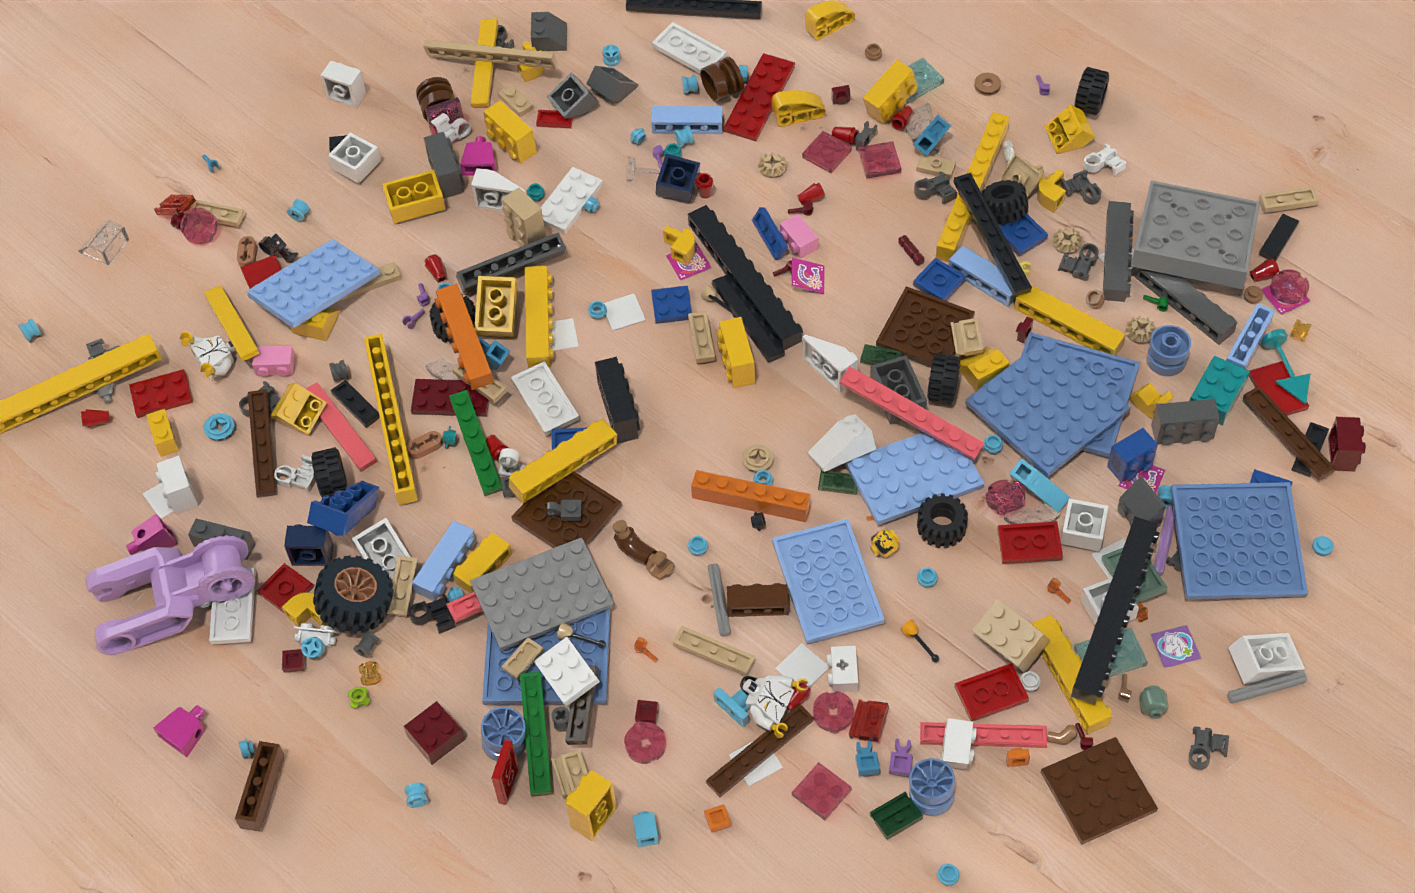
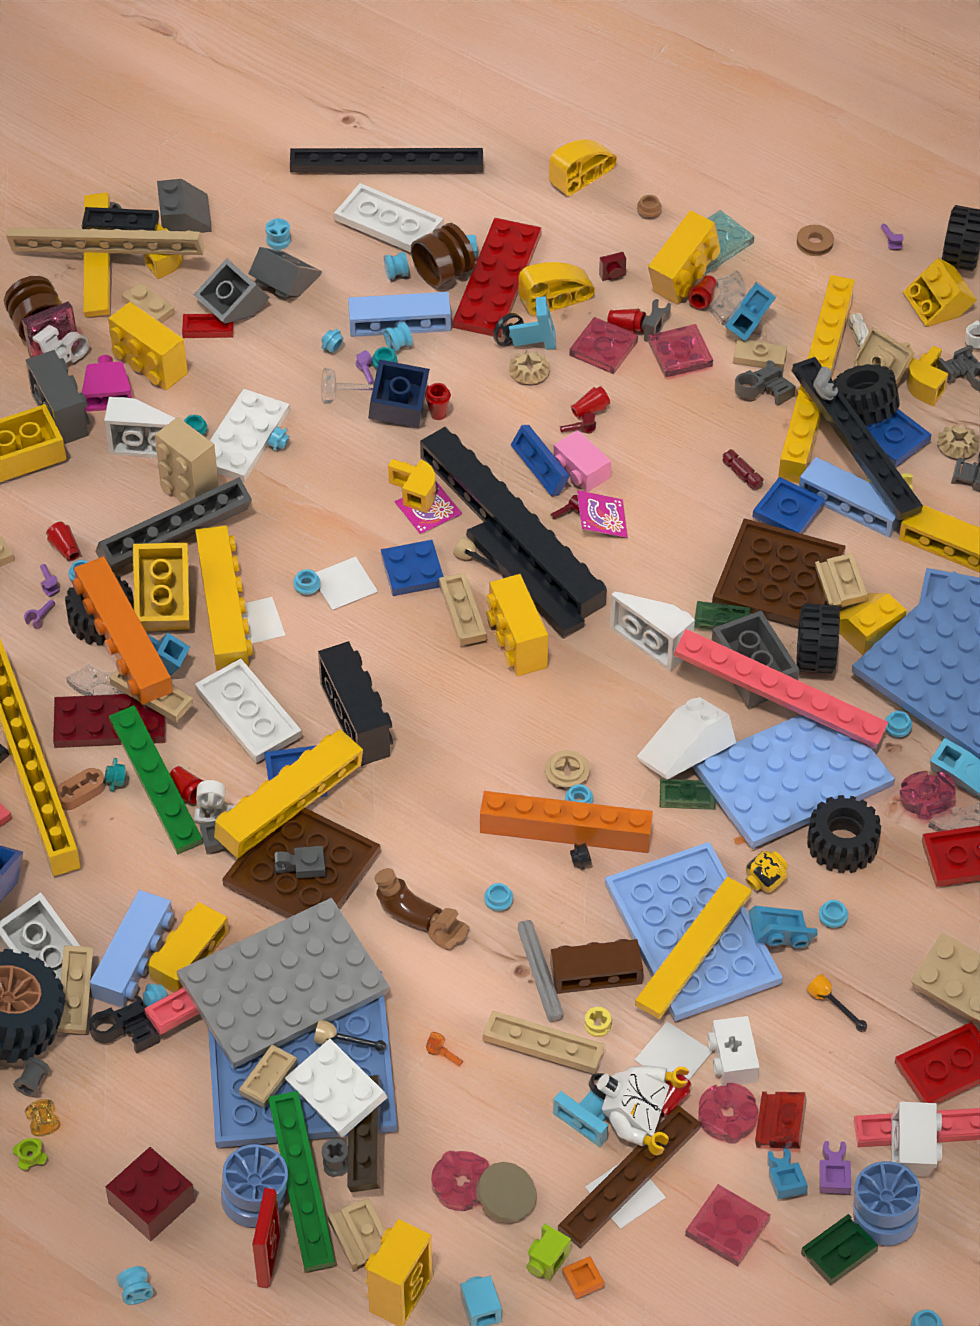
camera: 10 degrees left, 5 degrees down
(502, 39) = (120, 219): none -> black tile
(646, 711) = (458, 1135): dark red plate -> none
(673, 754) = (506, 1192): none -> dark tan tile
(696, 799) = (548, 1252): none -> lime brick
(753, 633) = (605, 1025): none -> light yellow bush
(775, 140) = (528, 333): none -> medium azure piece
(825, 593) = (693, 947): none -> yellow tile
(888, 583) = (780, 927): none -> dark azure bracket
(972, 195) = (822, 386): none -> light grey arm
(1023, 329) = (918, 564): dark red plate -> none

